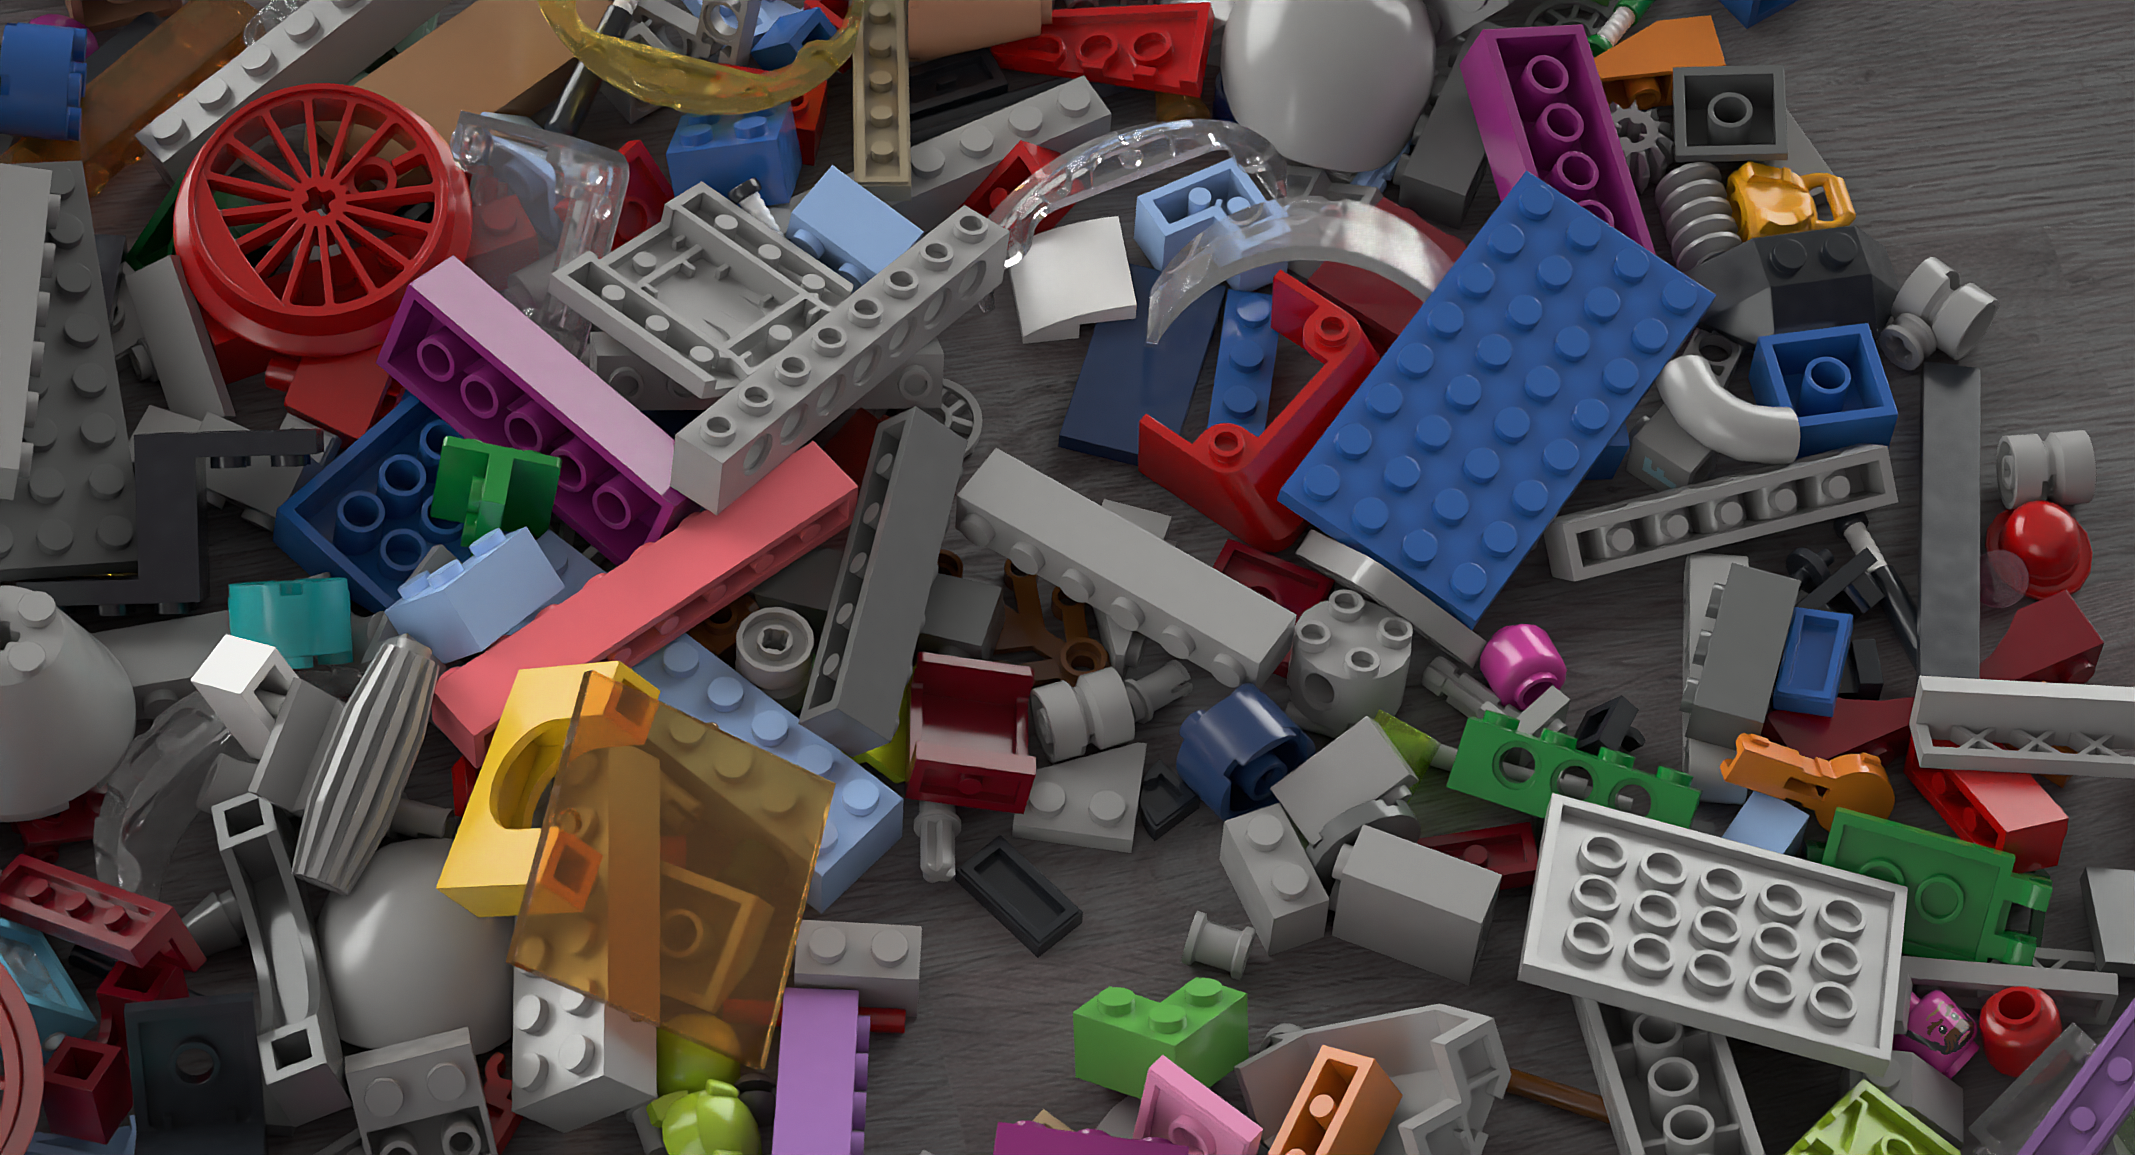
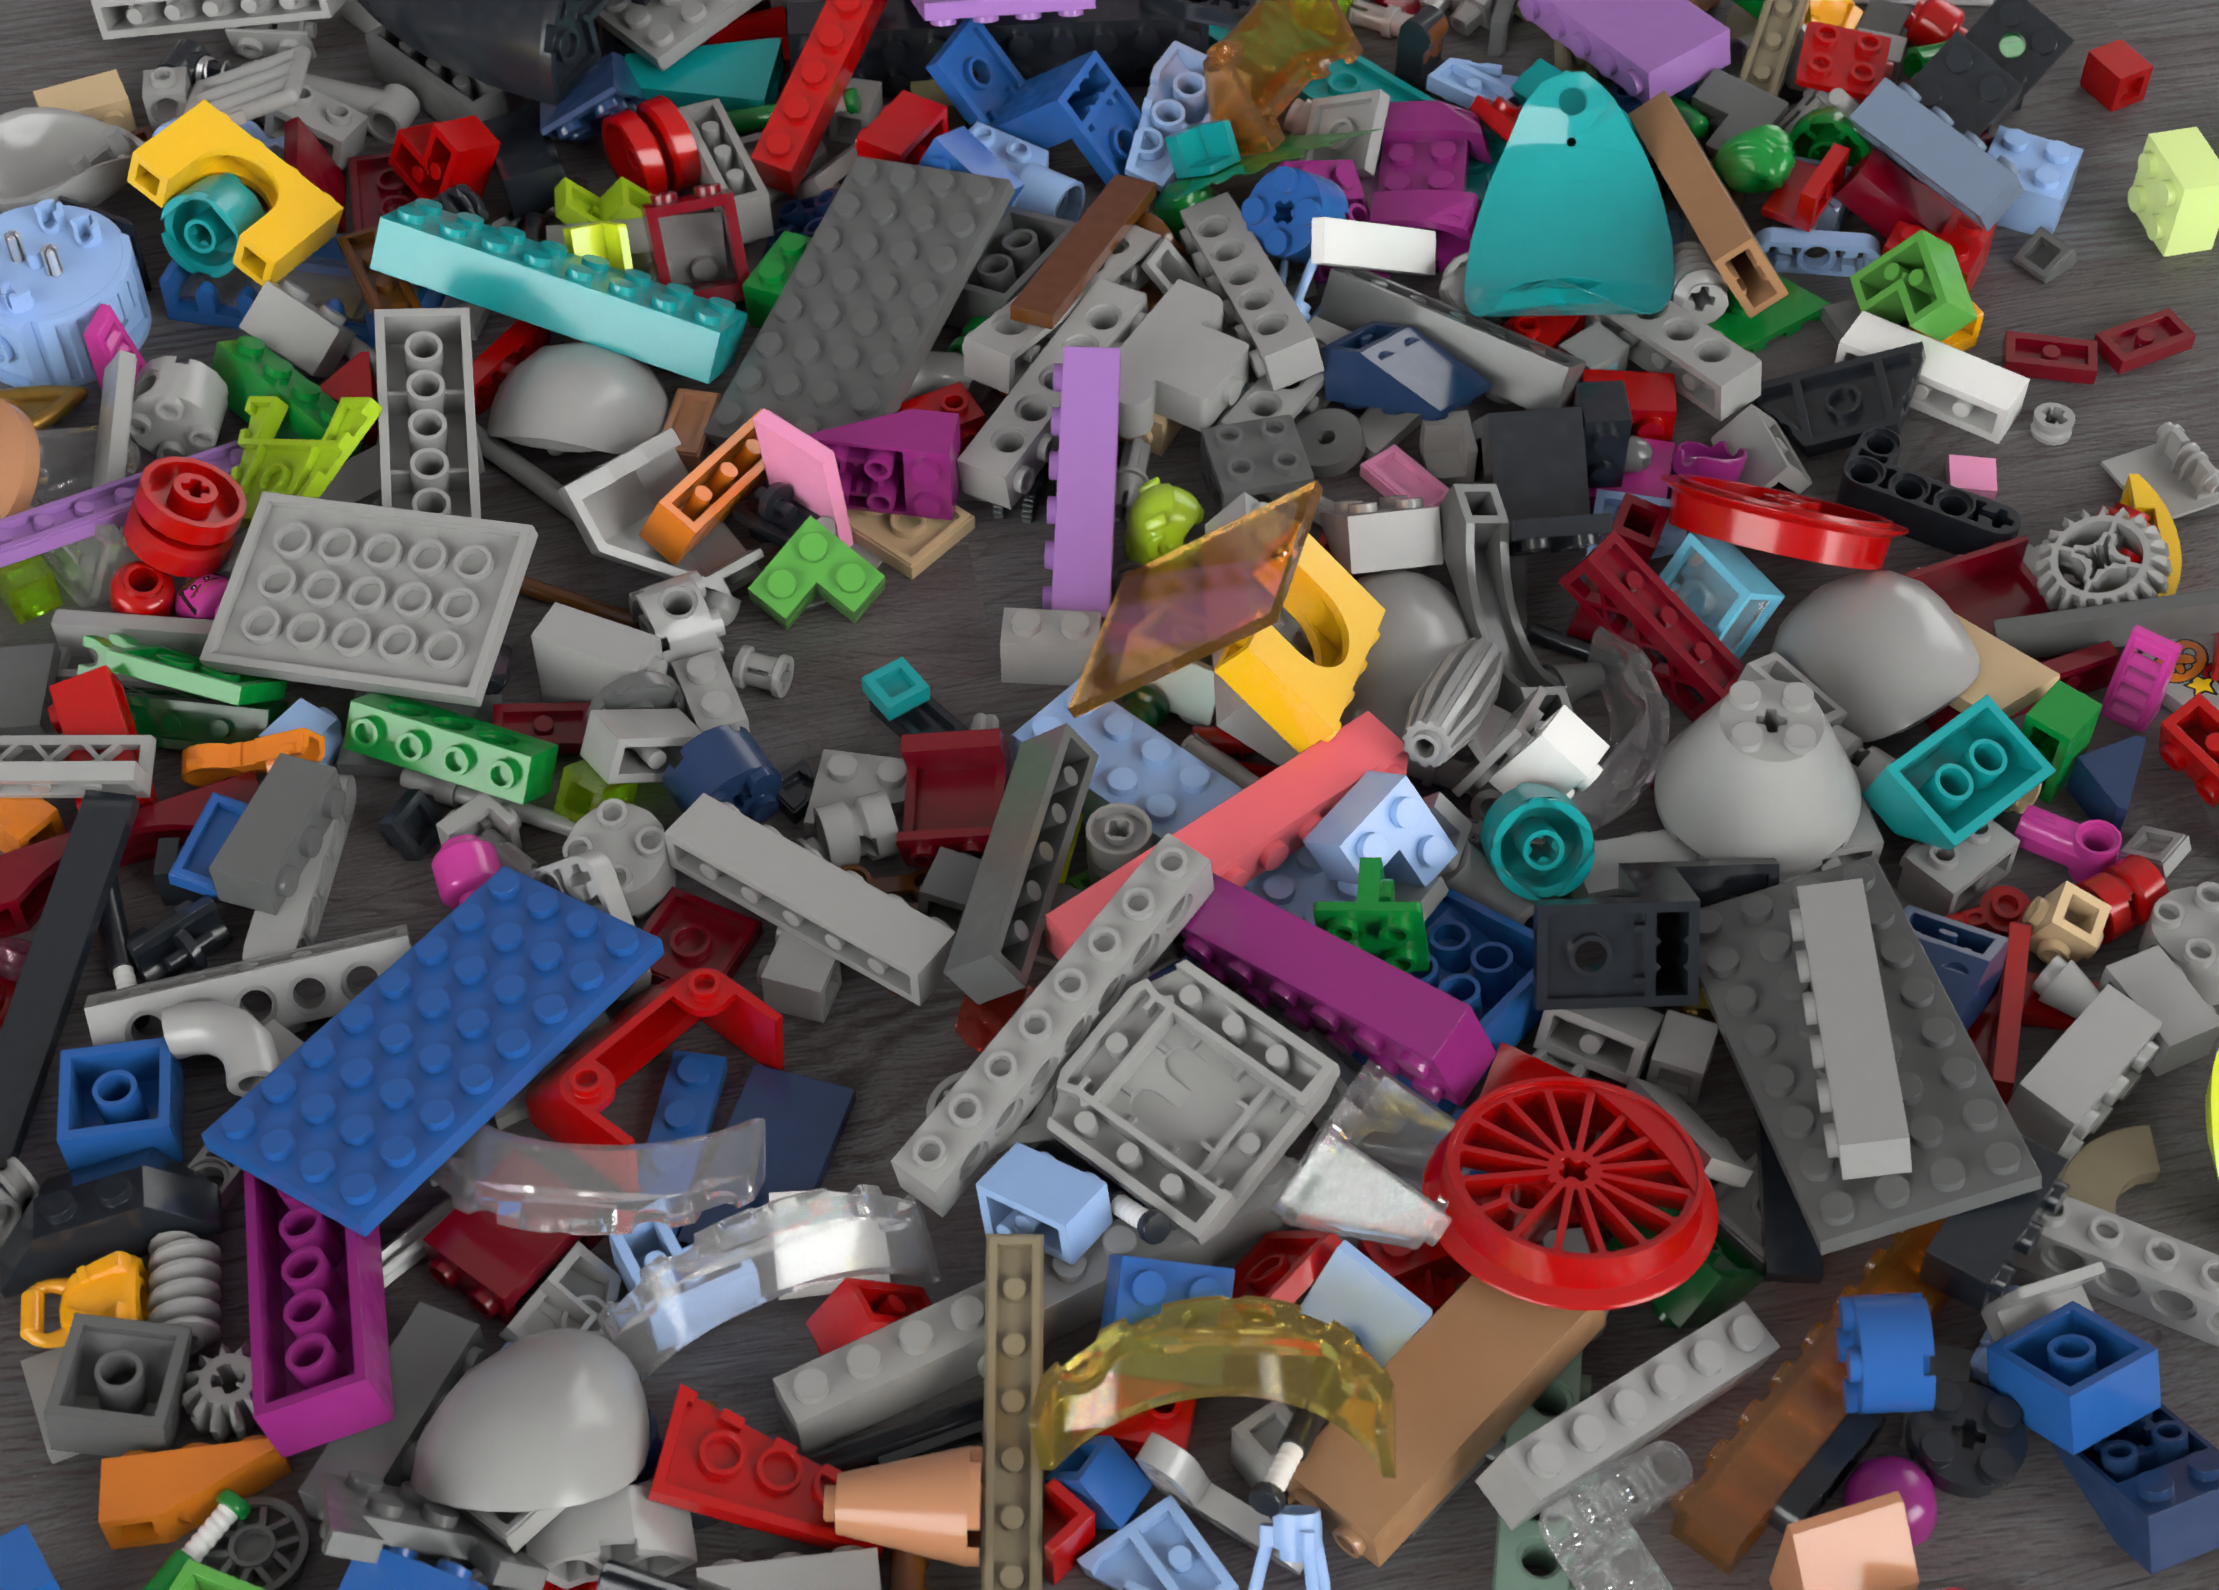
camera: 175 degrees left, 5 degrees down
(1049, 892) = (895, 688): none -> teal plate
(1331, 965) = (679, 617): none -> light grey brick
(1986, 1061) = (184, 516): none -> red wheel

